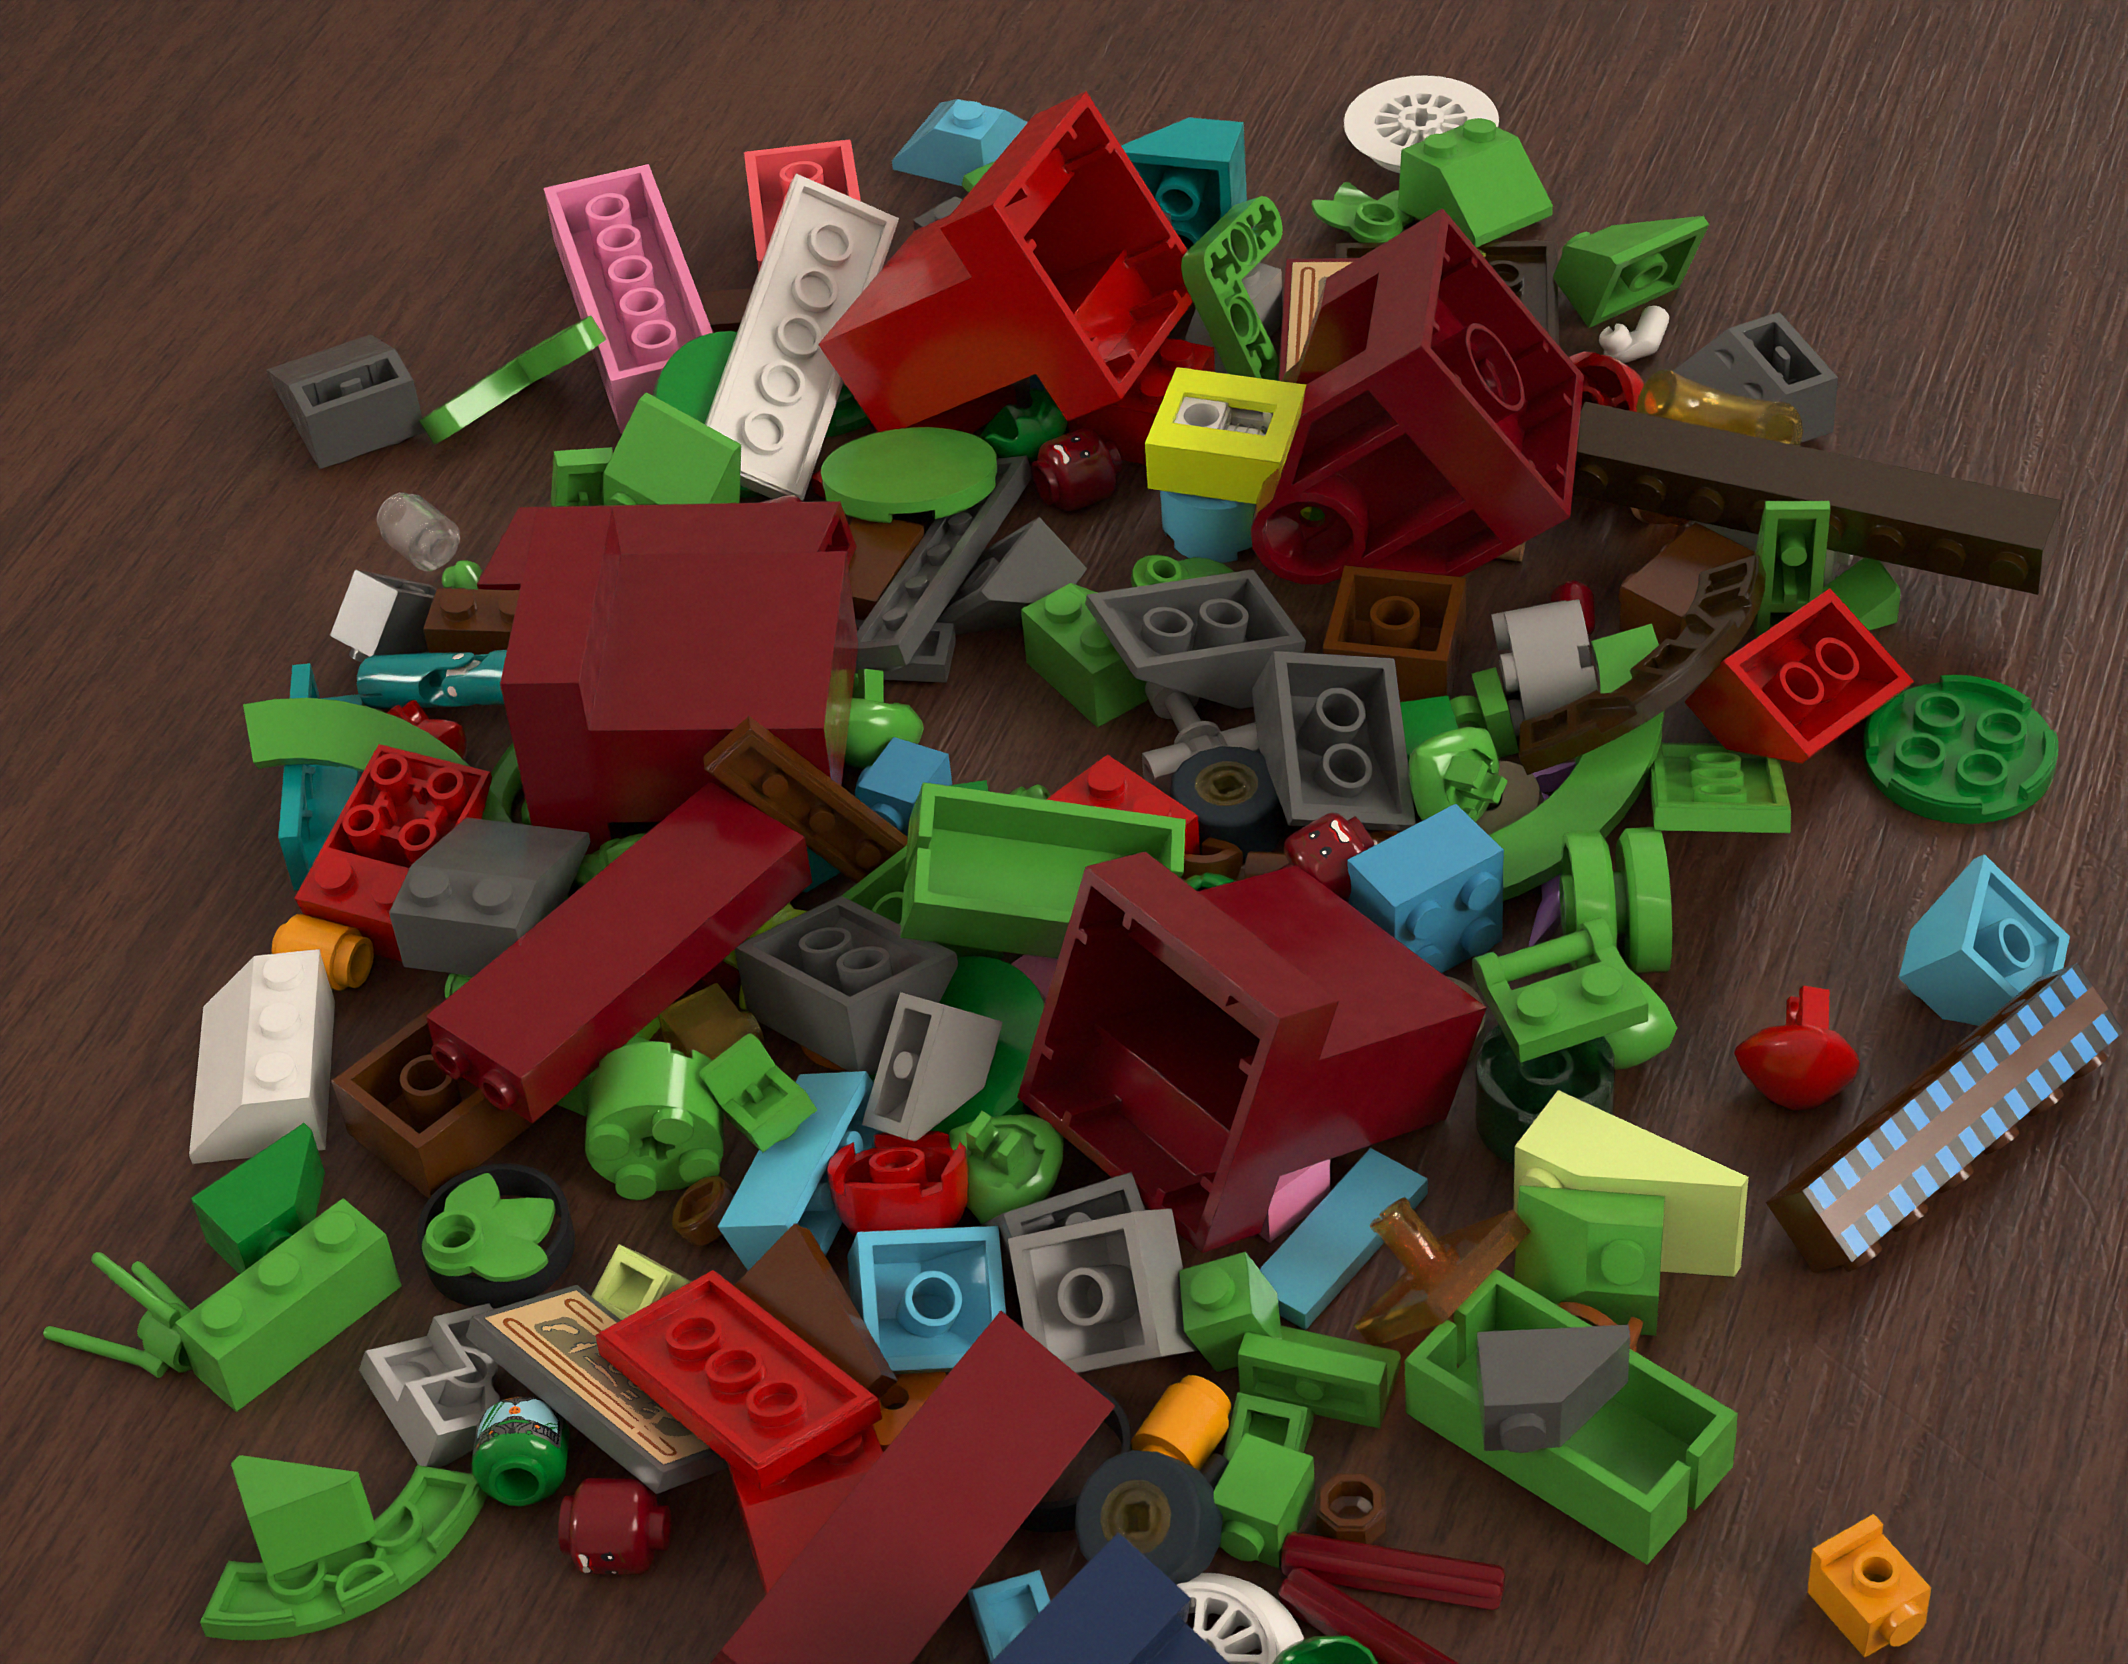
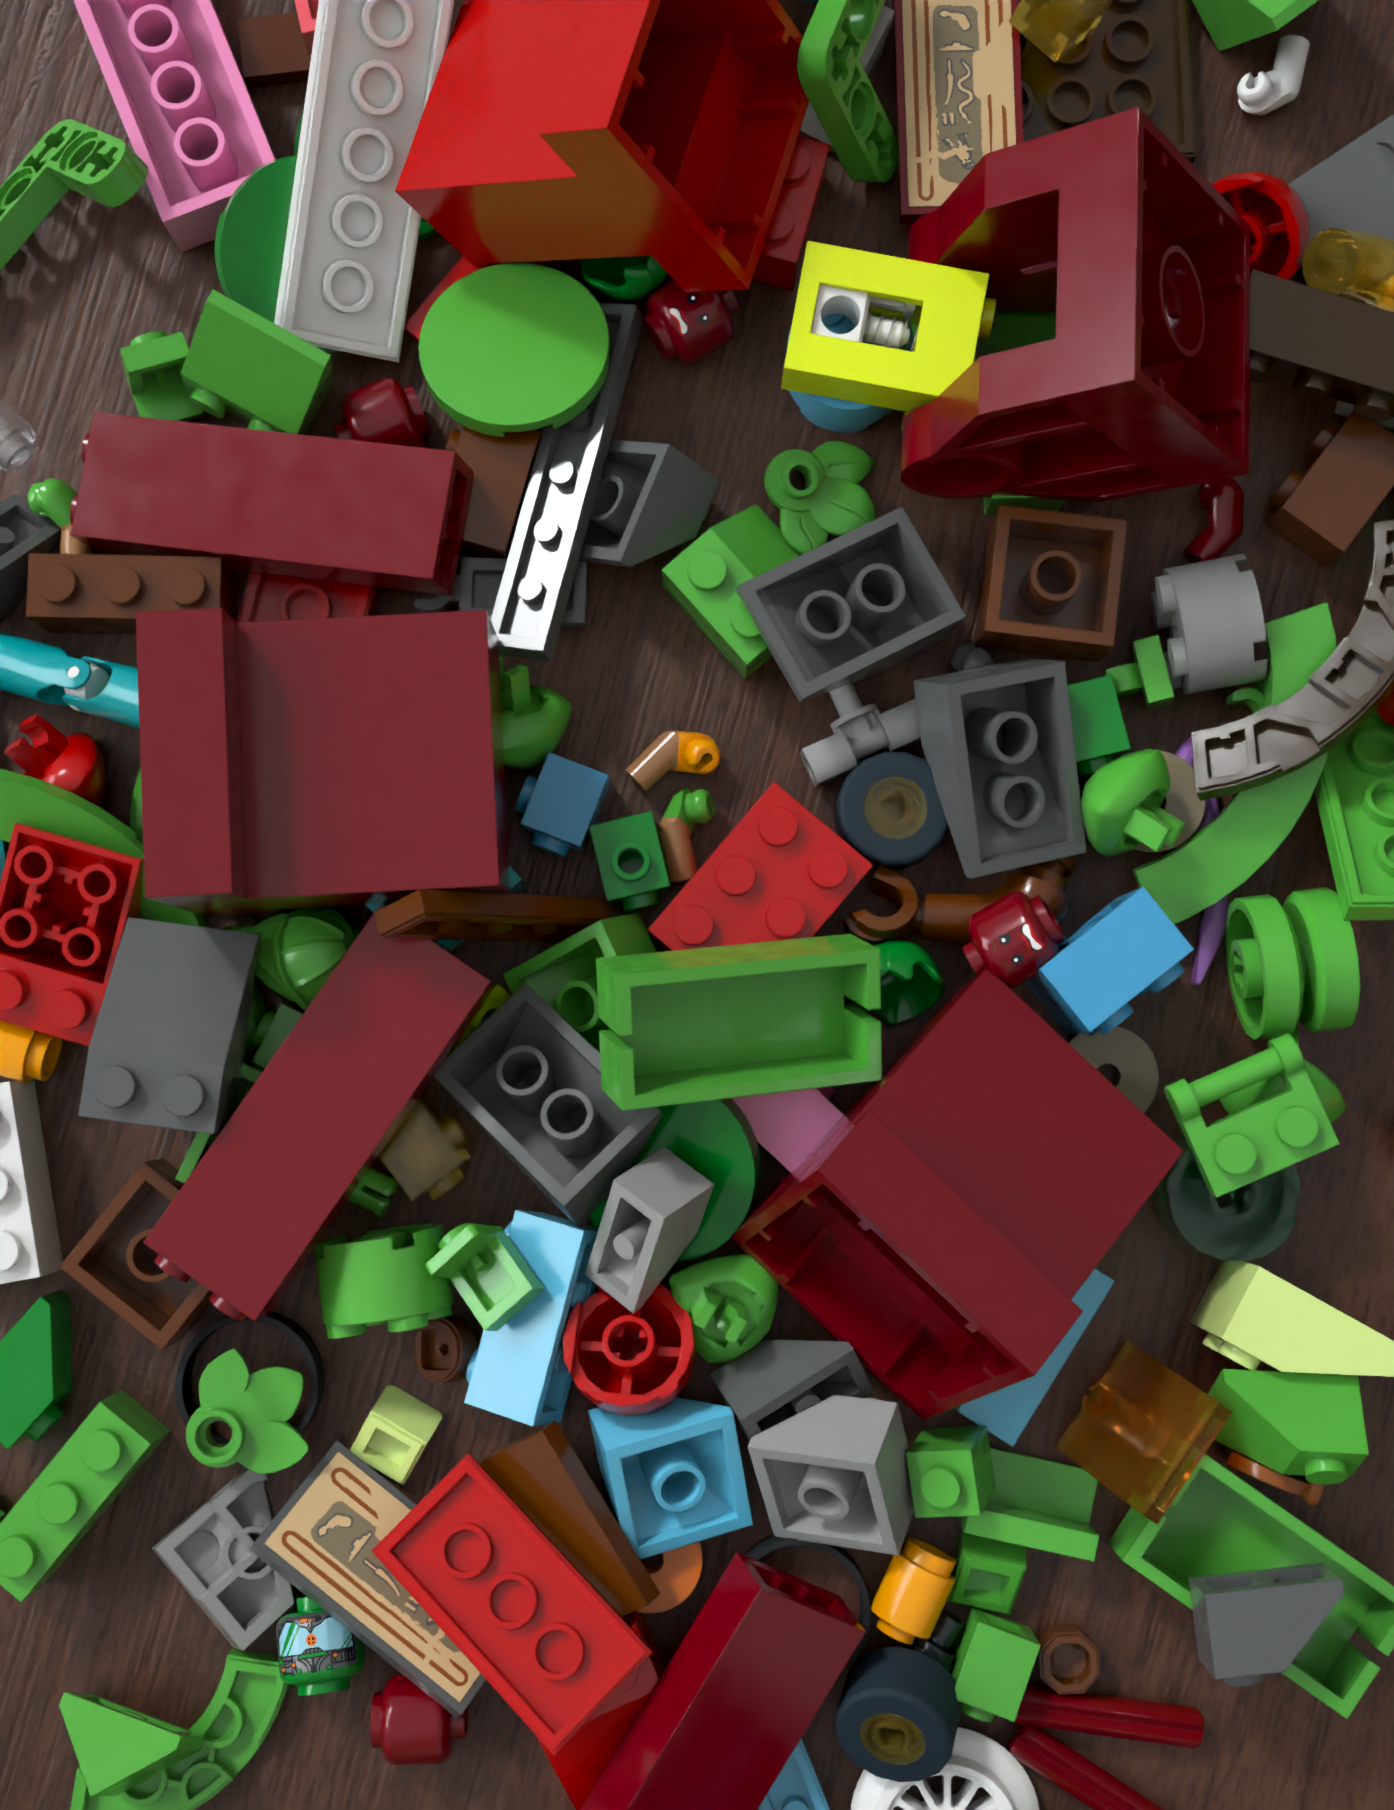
camera: 10 degrees left, 40 degrees up
(1021, 767) = (675, 752): none -> arm

